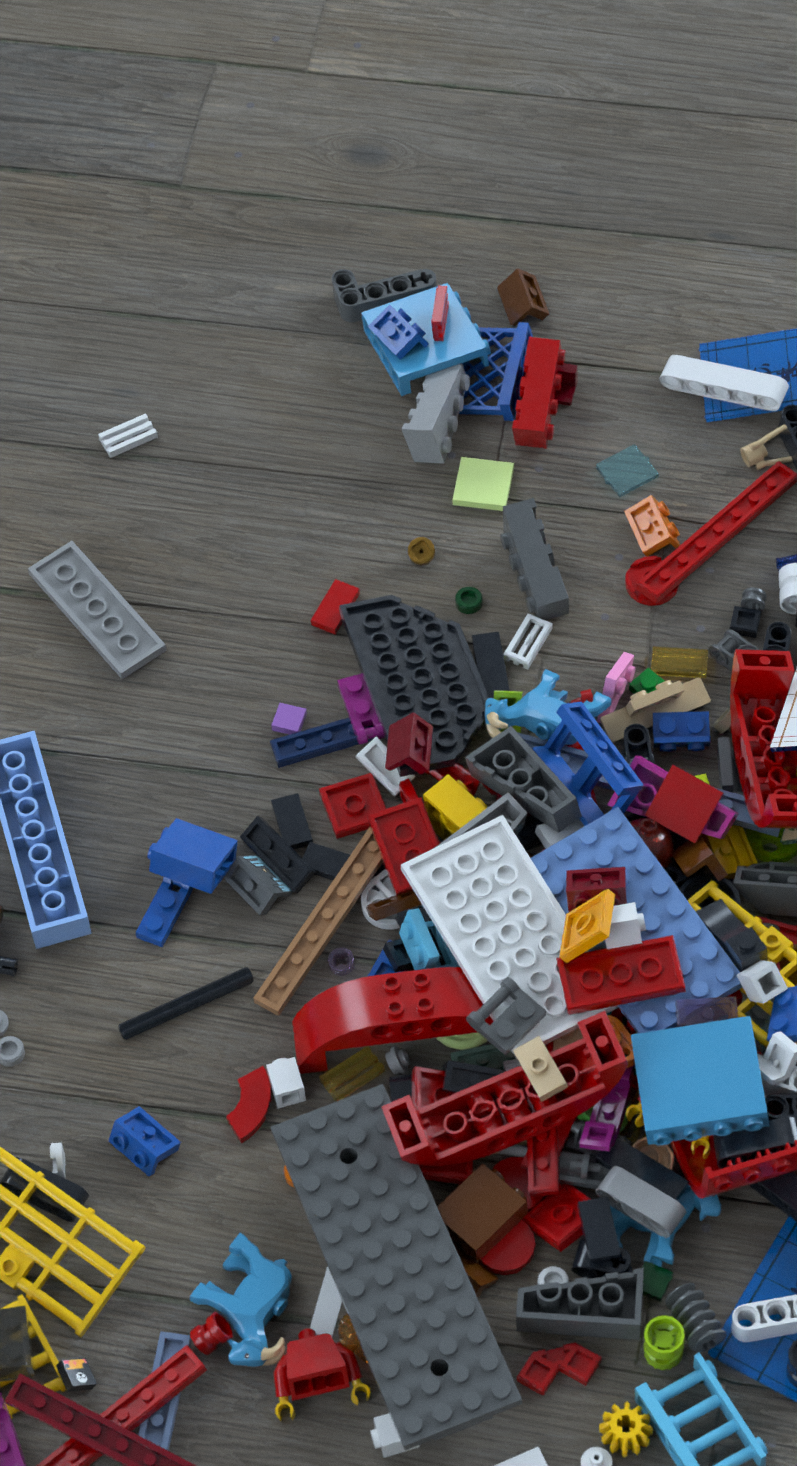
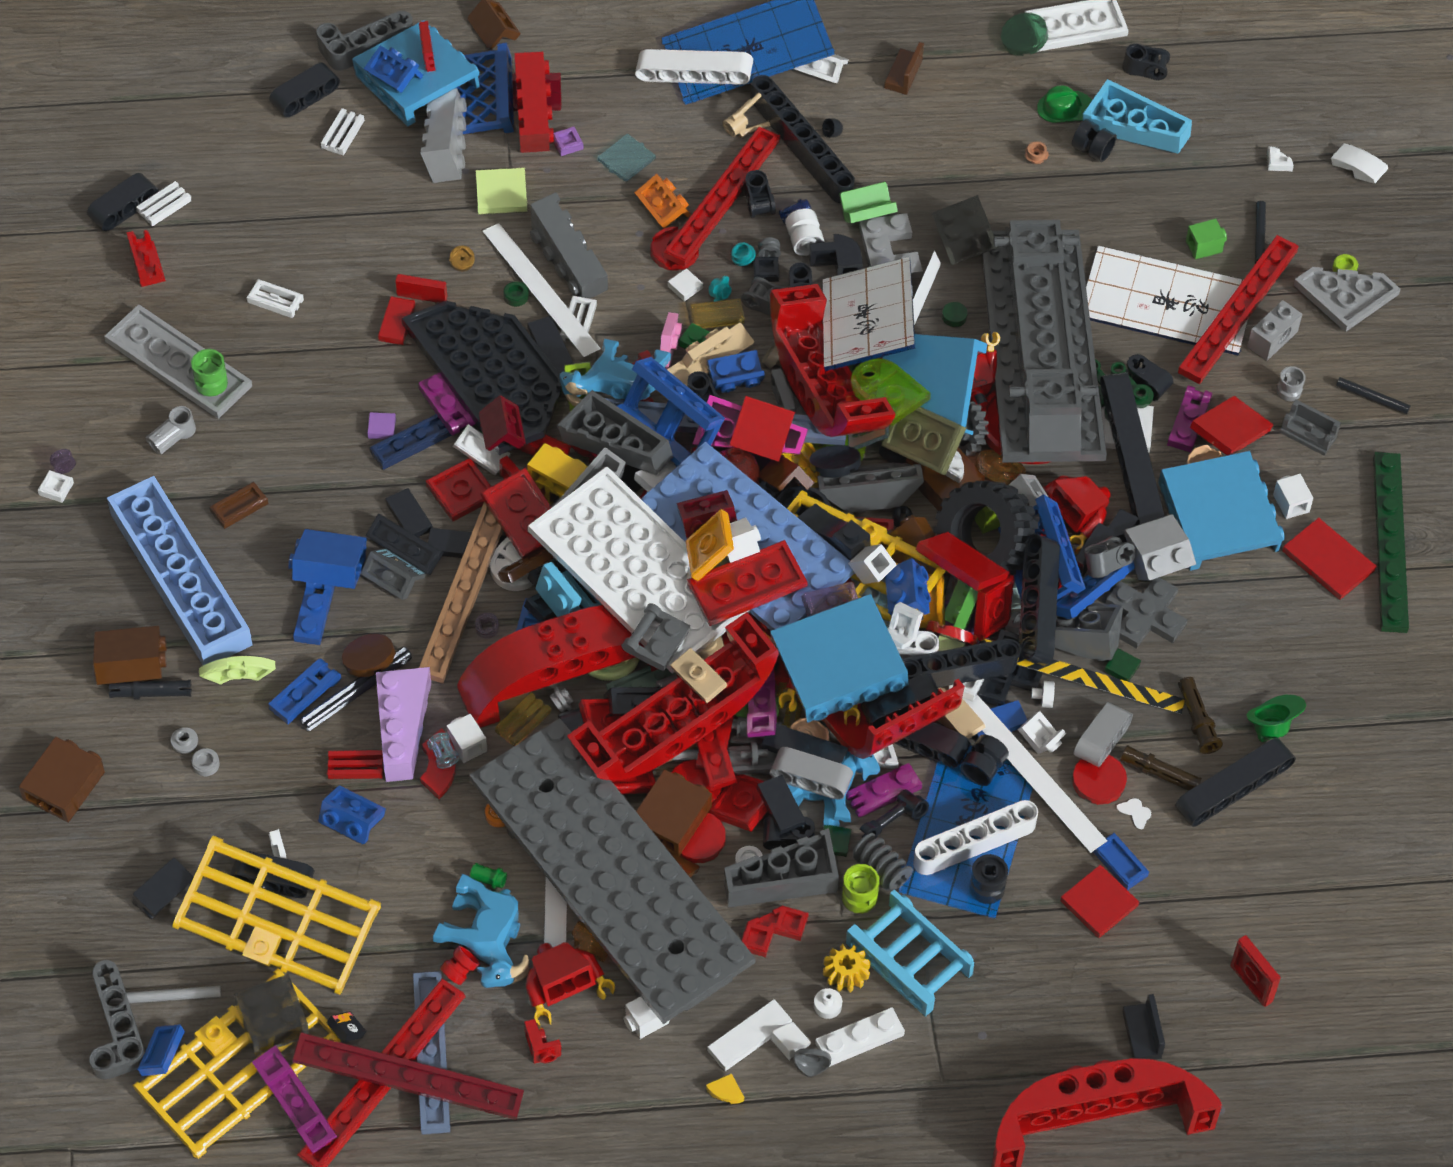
camera: 20 degrees left, 0 degrees up
(66, 956) = (237, 668): none -> yellowish green tile
(70, 683) = (172, 430): none -> light grey piece
(84, 426) = (121, 201): none -> black beam
(92, 492) = (145, 259): none -> red hinge
(118, 777) = (239, 505): none -> reddish brown tile
(121, 629) = (209, 372): none -> bright green wheel
(130, 995) = (304, 691): none -> blue plate
(140, 1080) = (355, 760): none -> red tile
(205, 559) = (273, 301): none -> white tile
(207, 969) = (368, 655): none -> reddish brown tile
(224, 1039) = (401, 713): none -> lavender wedge
(256, 1091) = (441, 760): none -> clear light blue bush
(269, 1240) = (489, 876): none -> green pin
(272, 1442) = (539, 1047): none -> red bracket
(304, 337) = (304, 90): none -> black beam
(329, 388) = (348, 117): none -> white tile
(369, 576) = (421, 288): none -> red tile
(496, 601) = (541, 290): none -> white sticker
(568, 441) = (567, 141): none -> medium lavender tile
(652, 623) = (685, 284): none -> white tile
(688, 635) = (720, 288): none -> teal plate
(721, 1235) = (883, 790): none -> magenta hinge
(723, 600) = (743, 254): none -> teal plate
(733, 1199) = (887, 758): none -> white tile
(744, 1257) = (908, 804): none -> black brick
(757, 540) = (758, 194): none -> black piece
(761, 853) = (835, 461): none -> black tile

